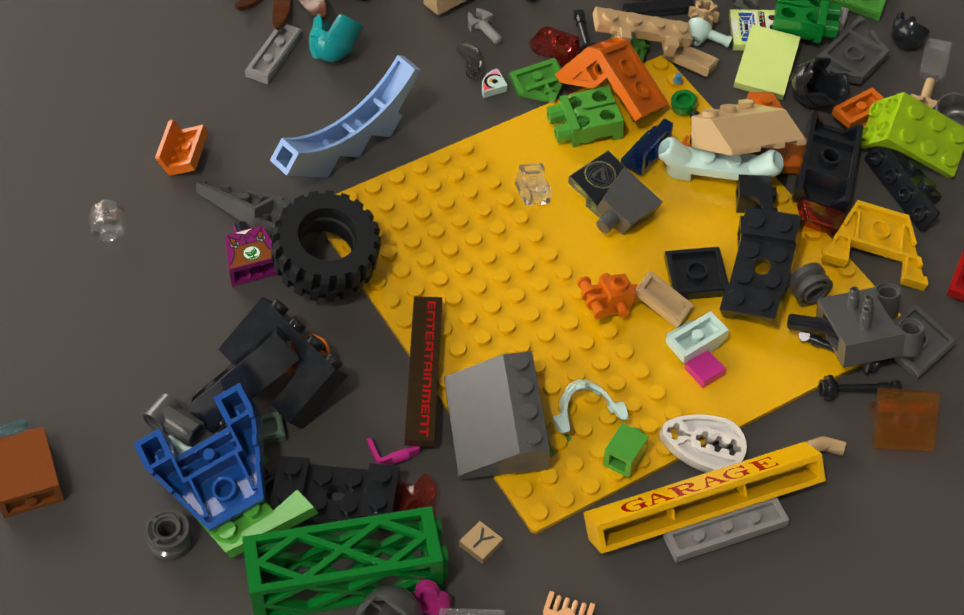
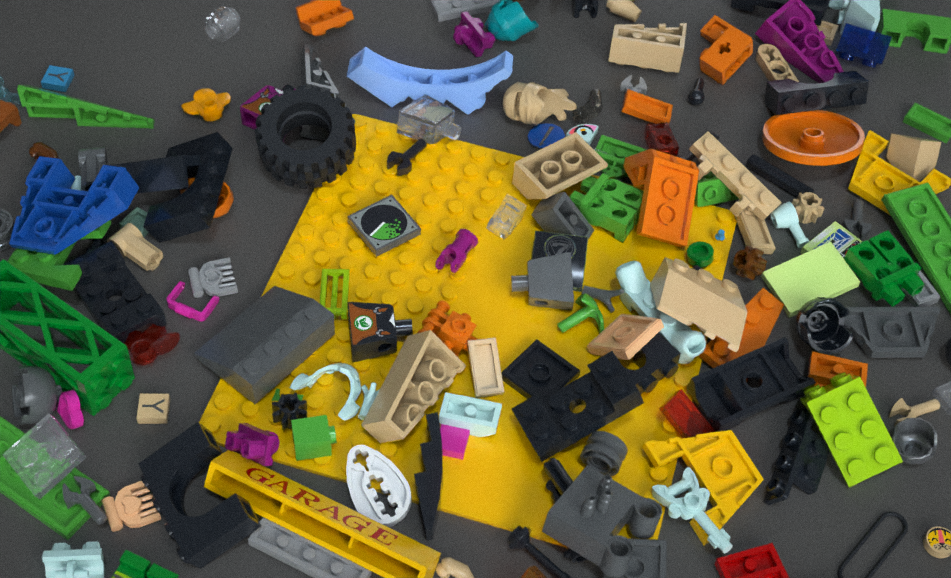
camera: 45 degrees right, 0 degrees up
(27, 380) = (57, 78): none -> dark azure tile
(59, 402) = (56, 105): none -> bright green wedge
(115, 442) = (41, 149): none -> reddish brown arm
(186, 294) = (207, 104): none -> light orange plate
(300, 444) = (134, 246): none -> tan piece
(315, 71) = (471, 33): none -> magenta hips
(383, 417) = (210, 279): none -> light grey piece
(384, 161) = (428, 121): none -> clear torso
(401, 204) = (404, 159): none -> black bar
(423, 372) = (266, 270): dark brown tile -> none
(438, 86) = (534, 103): none -> tan piece
(457, 265) = (384, 225): none -> tile
(473, 105) = (547, 134): none -> blue piece
(487, 345) = (335, 273): none -> lime tile
(511, 28) = (646, 107): none -> orange tile
(527, 120) = (556, 167): none -> tan slope
(535, 235) = (456, 252): none -> magenta piece
(560, 341) = (374, 330): none -> torso
(568, 153) = (561, 216): none -> dark grey slope
(586, 447) = (288, 409): none -> black gear
(598, 490) = (253, 443): none -> magenta hips
(622, 392) = (369, 397): none -> light aqua bar
(640, 356) = (411, 386): none -> tan wedge
(645, 150) = (609, 258): clear blue bracket -> none
(646, 588) = (167, 476): none -> black arch
(665, 183) = (602, 295): none -> dark grey bar
(673, 198) = (589, 309): none -> bright green plant
(715, 87) = (749, 262): none -> reddish brown gear
(721, 196) = (625, 336): none -> light nougat tile
(732, 398) = (430, 483): none -> black slope
(897, 269) = (691, 507): none -> light aqua piece

